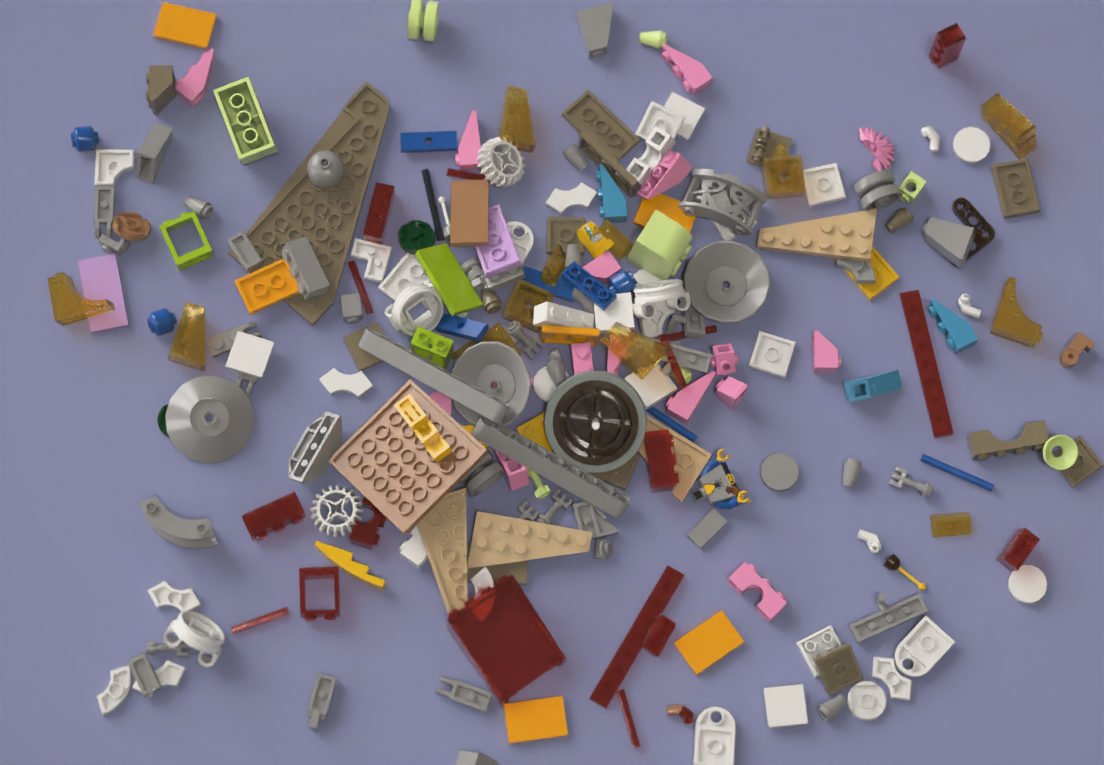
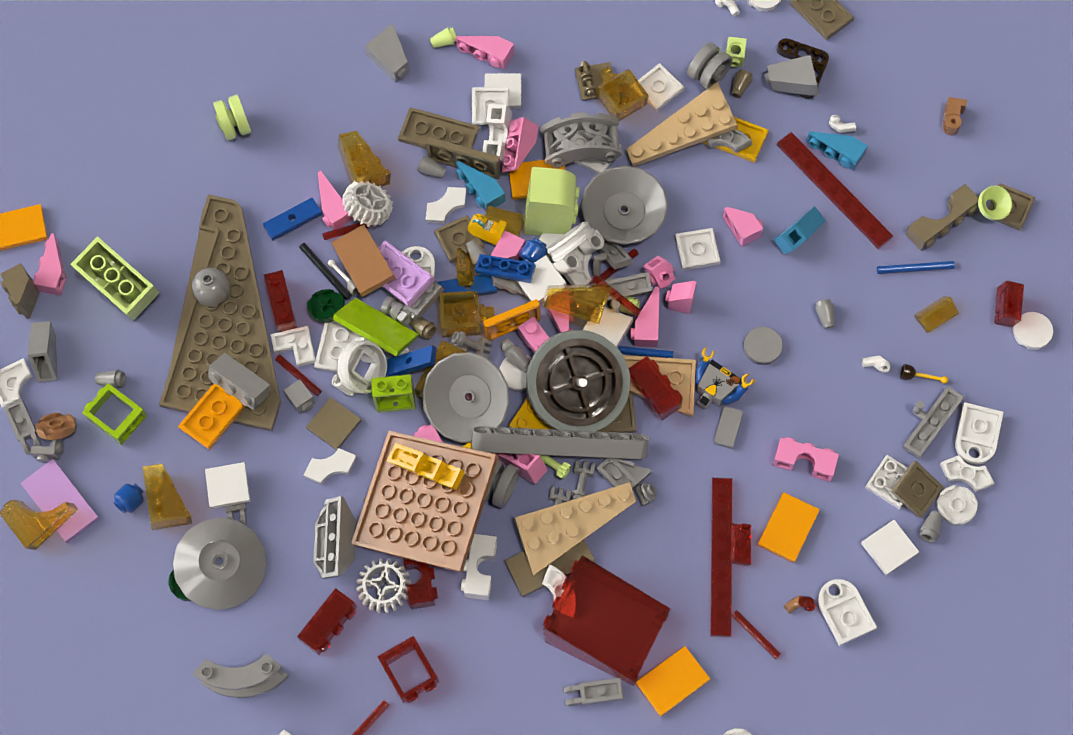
camera: 20 degrees left, 5 degrees down
(223, 342) = (197, 486): light grey hinge -> none
(244, 251) = (174, 395): light grey tile -> none
(344, 560) = (428, 631): yellow slope -> none
(434, 375) = (409, 415): light grey beam -> none
(445, 543) = (504, 564): tan wing -> none
(559, 315) = (490, 306): white arch -> none
(878, 147) = (687, 33): bright pink hair -> none
(926, 489) = (898, 294): light grey hinge -> none
(1012, 322) = (886, 118): clear yellow arch -> none

